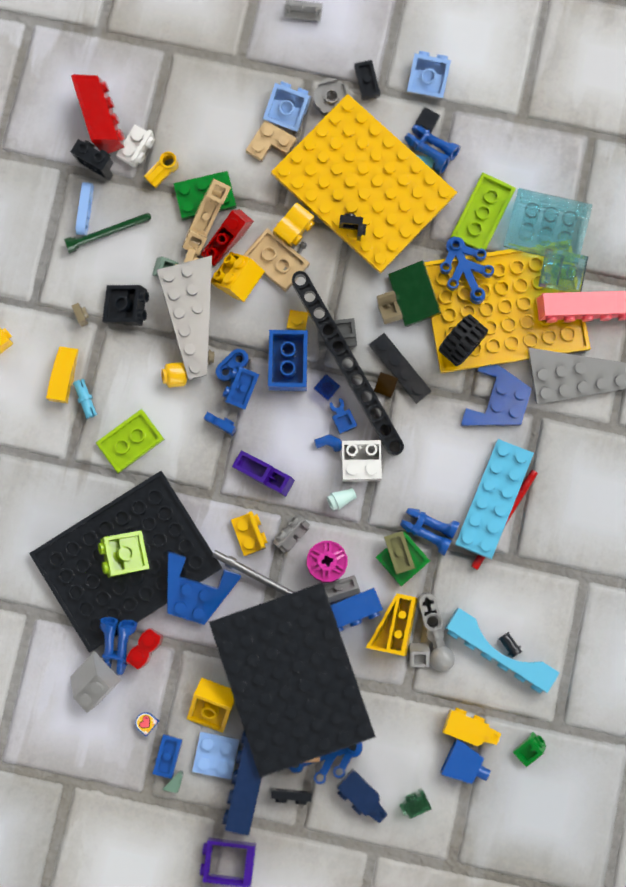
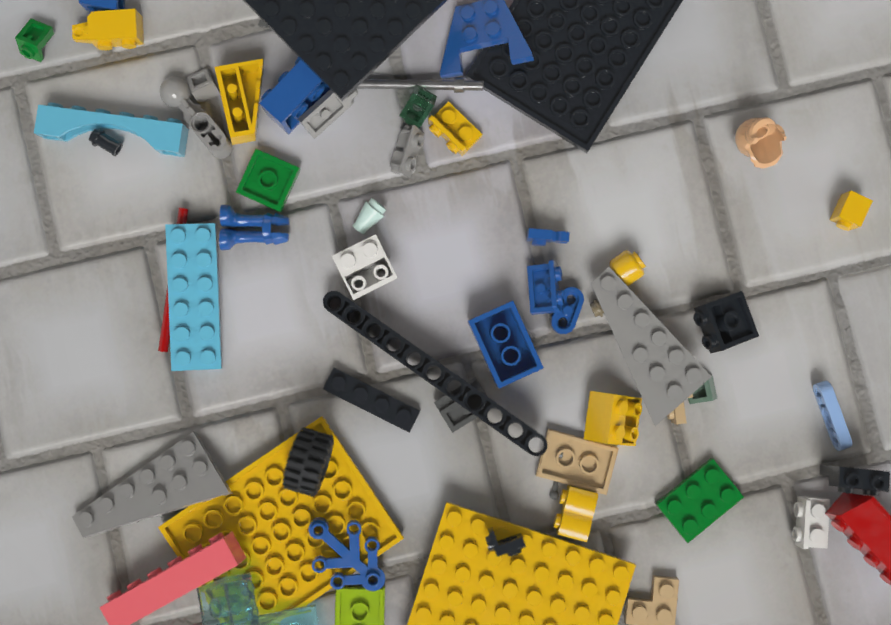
camera: 150 degrees right, 5 degrees up
(35, 417) = (760, 141): none -> light nougat hair
(62, 375) = (755, 207): yellow slope -> none
(73, 243) = (823, 366): dark green piece -> none
(81, 314) = (771, 287): dark tan plate -> none
(85, 398) = (715, 193): medium azure pin -> none
(123, 554) = (582, 34): plate -> none
(130, 441) = (640, 170): lime tile -> none
(160, 171) = (768, 504): yellow piece -> none
(205, 216) = (686, 473): tan slope -> none
(227, 235) = (648, 462): red slope -> none
(263, 473) = (470, 203): dark purple slope -> none
(267, 560) = (422, 99): none -> clear green brick
(297, 320) = (517, 399): yellow plate -> none
(327, 387) = (445, 336): clear blue plate -> none
(329, 440) = (409, 276): blue arm -> none
(336, 568) = (349, 148): dark pink wheel -> none
(343, 419) = (409, 307): blue plate -> none
(385, 384) = (379, 371): dark brown slope -> none
(389, 307) = (417, 464): dark tan bracket -> none
(399, 552) = (273, 182): olive plate -> none
(414, 293) = (395, 496): dark green tile -> none
(506, 401) = (230, 416): wing -> none

